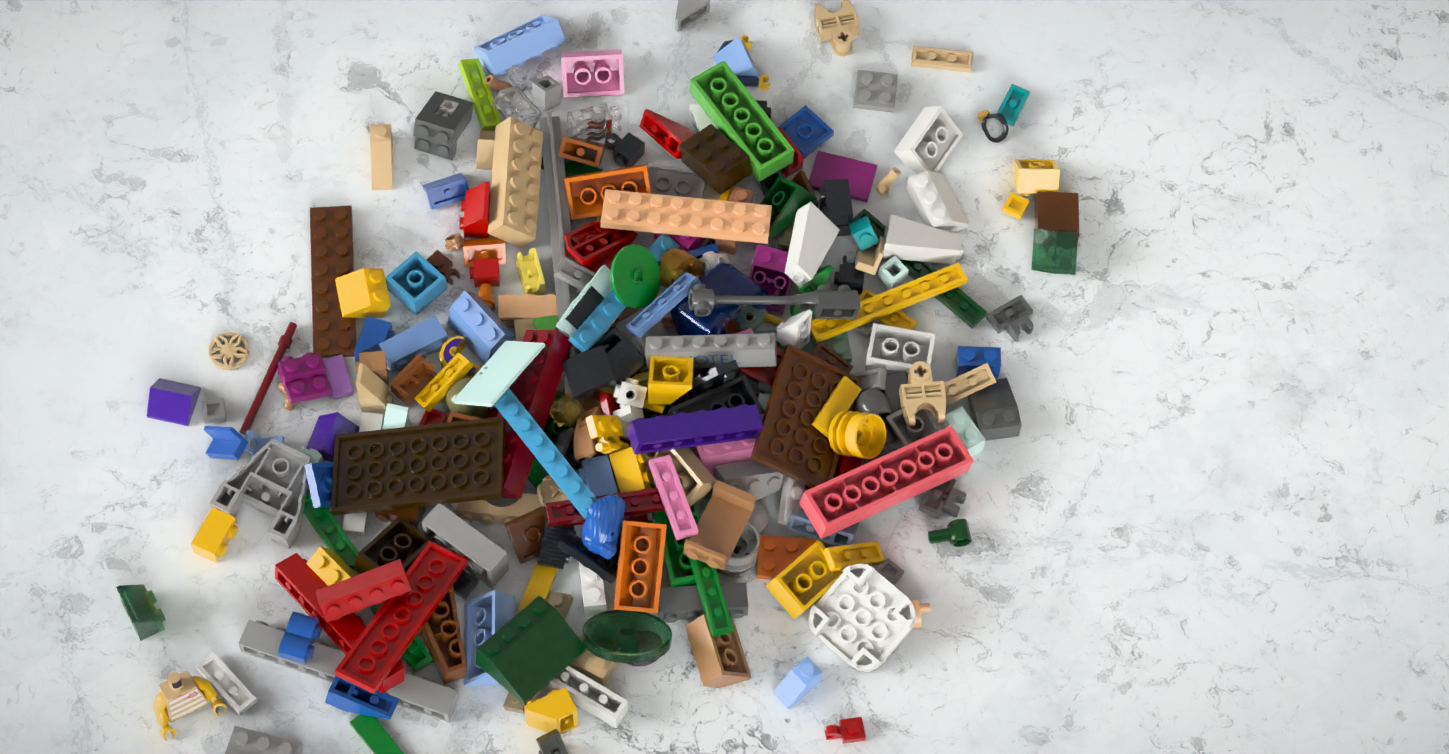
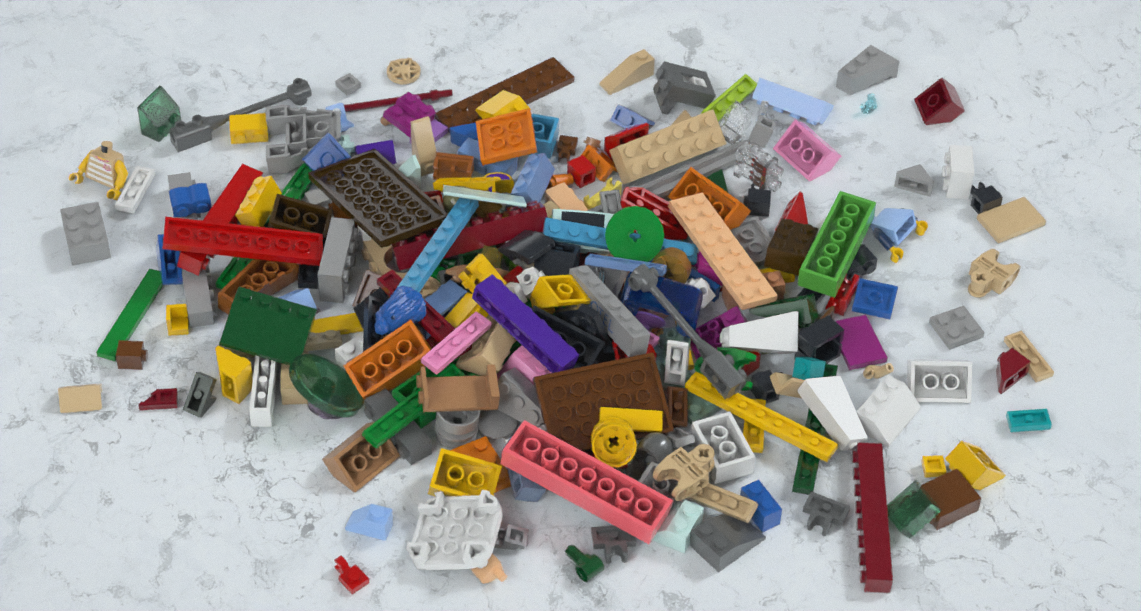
camera: 60 degrees right, 15 degrees down
(172, 401) = (339, 60): dark purple slope -> none
(184, 576) = (199, 129): none -> dark grey bar
(226, 443) = (323, 100): panel -> none
(363, 590) = (245, 206): red brick -> none
(376, 363) = (445, 138): medium nougat brick -> none
(413, 310) = (506, 136): none -> orange plate
(439, 729) = (177, 319): none -> yellow panel
(496, 84) = (744, 99): medium nougat arm -> none
(582, 150) = (731, 173): dark orange slope -> none
(848, 555) = (510, 501): yellow plate -> none
(893, 273) = (792, 407): light aqua brick -> none
(951, 82) = (1010, 369): none -> dark red slope
(984, 115) = (1003, 407): black piece -> none
(1040, 284) = (873, 518): none -> dark red brick

